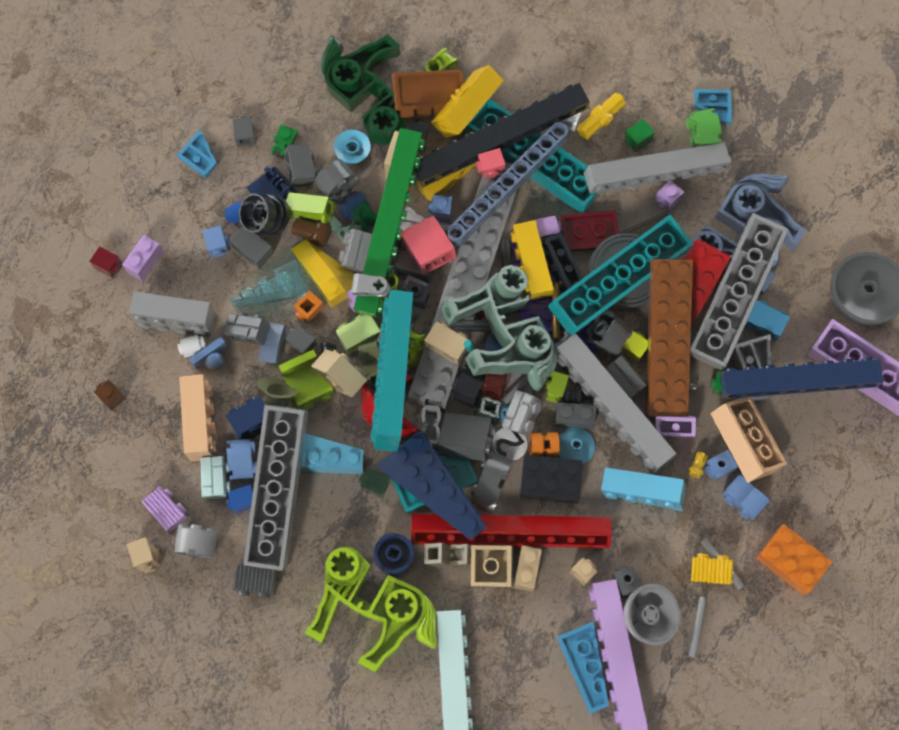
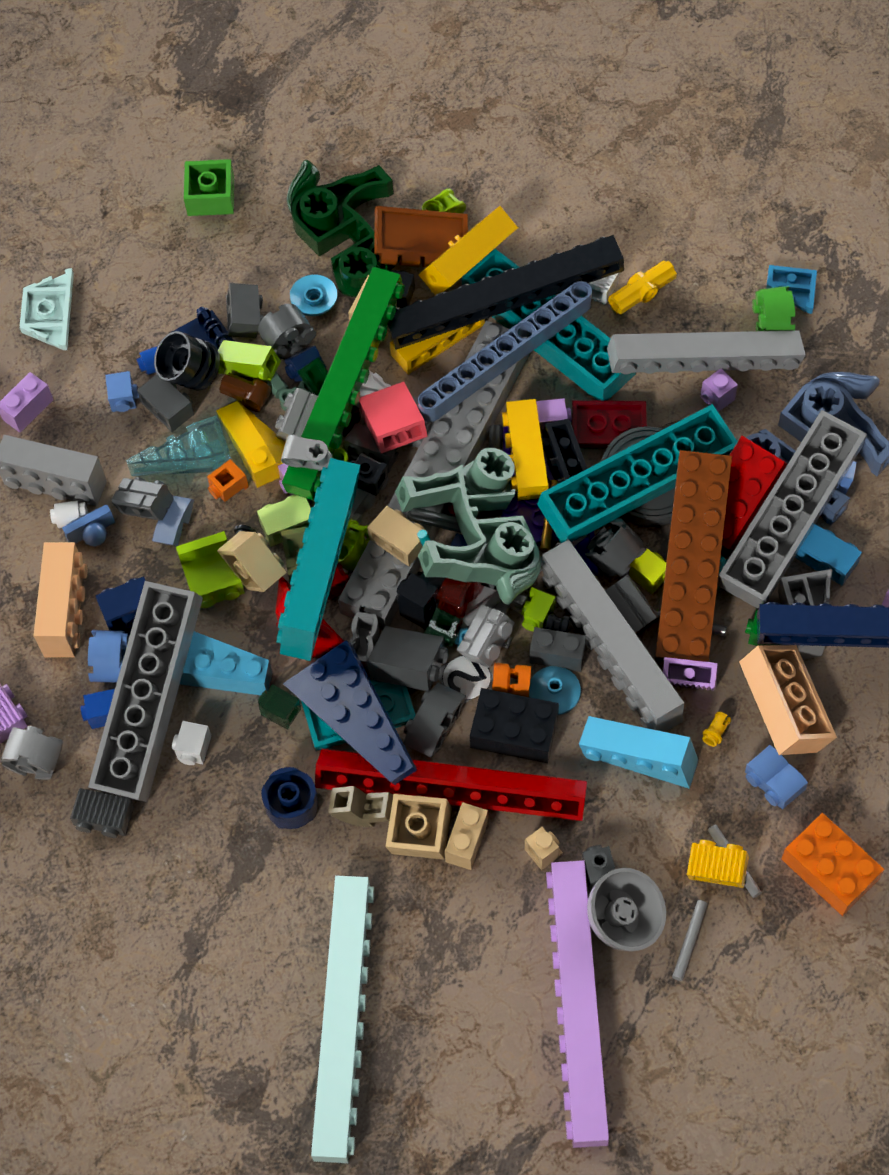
camera: 10 degrees right, 10 degrees down
(147, 178) = (48, 310): none -> light aqua wing
(198, 155) = (116, 288): dark azure wing -> none
(214, 478) = (70, 678): light aqua brick -> none
(243, 131) = (178, 265): dark grey brick -> none
(257, 64) = (209, 187): none -> bright green brick
(276, 391) = (168, 575): olive piece -> none
(284, 137) = (228, 274): green plate -> none
(300, 340) = (209, 519): dark grey brick -> none
(313, 519) = (191, 743): none -> white brick
(397, 606) = (284, 864): lime animal -> none
(441, 208) = (417, 376): medium blue brick -> none
(490, 163) = (486, 324): coral brick -> none
(583, 659) = (527, 965): dark azure wing -> none
(639, 135) = (688, 314): green brick -> none
(720, 465) = (746, 732): medium blue brick -> none

